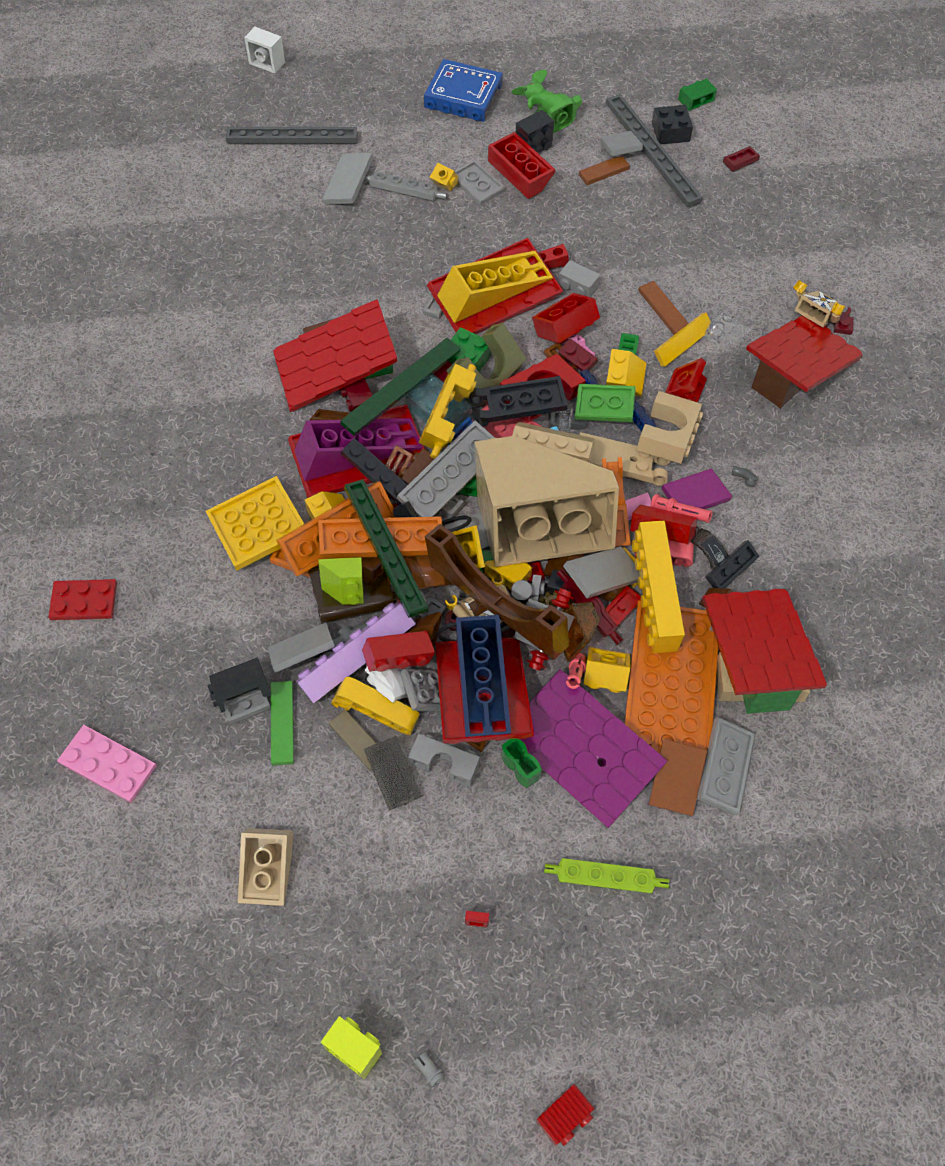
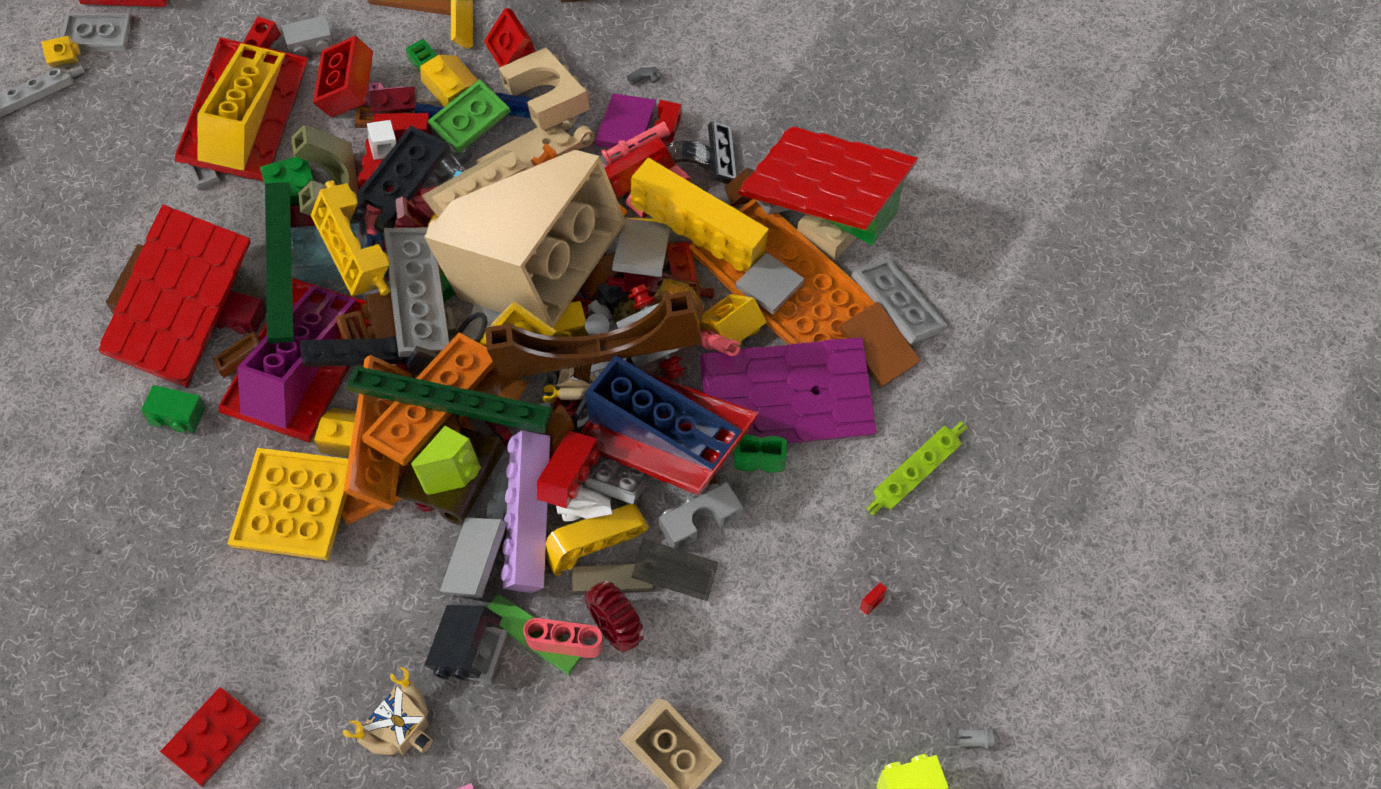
camera: 50 degrees left, 0 degrees up
(162, 689) = (396, 722): none -> torso
(267, 415) = (173, 409): none -> green brick
(284, 732) = (553, 629): none -> coral beam
(323, 759) = (614, 616): none -> dark red gear
(498, 425) = (410, 214): none -> dark red plate
(537, 368) = (381, 138): none -> white brick
(565, 1115) = (1098, 653): red brick -> none
(655, 670) = (769, 283): none -> light grey tile
(723, 516) = (671, 115): none -> red leg

